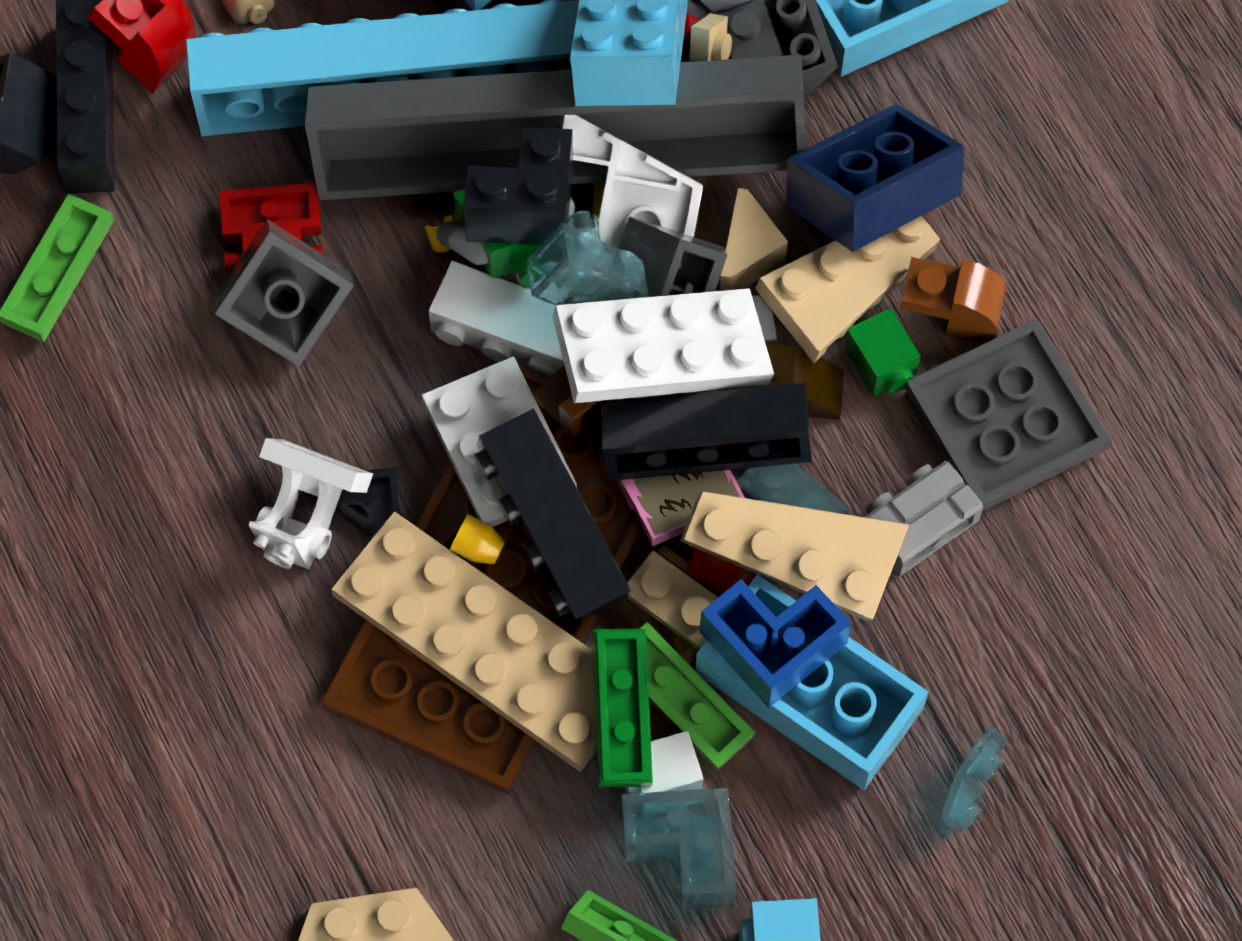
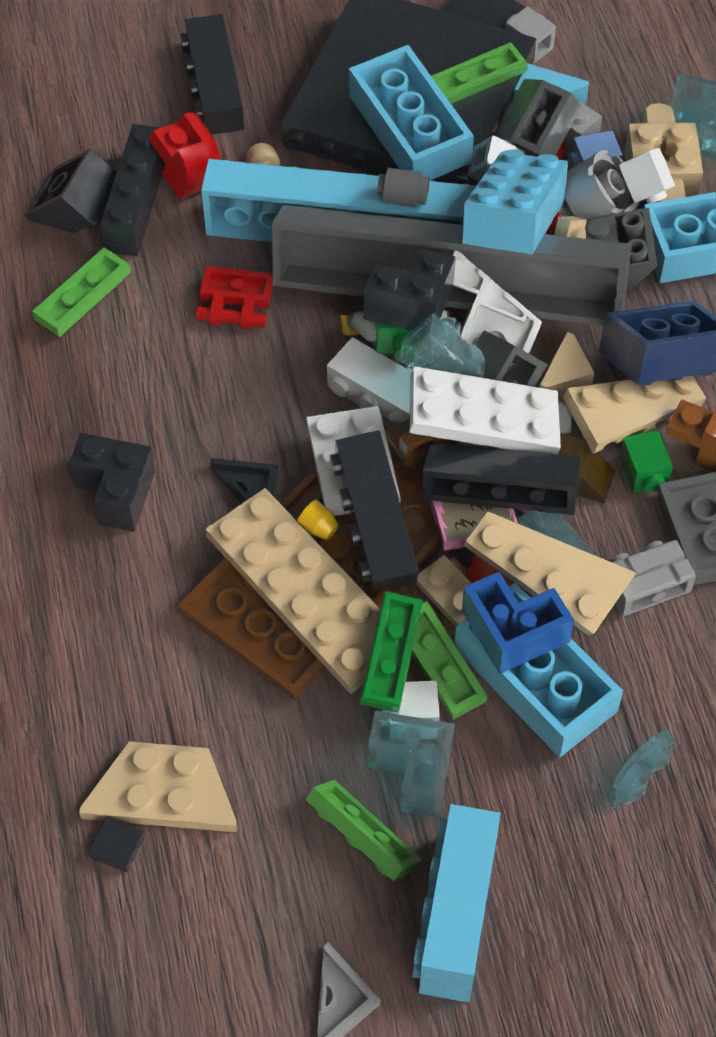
camera: 15 degrees right, 10 degrees down
(192, 530) = (118, 473): none -> black brick
(283, 293) = (229, 334): dark grey slope -> none
(290, 540) = (208, 450): white tile -> none
(472, 32) = (403, 187): none -> dark grey brick

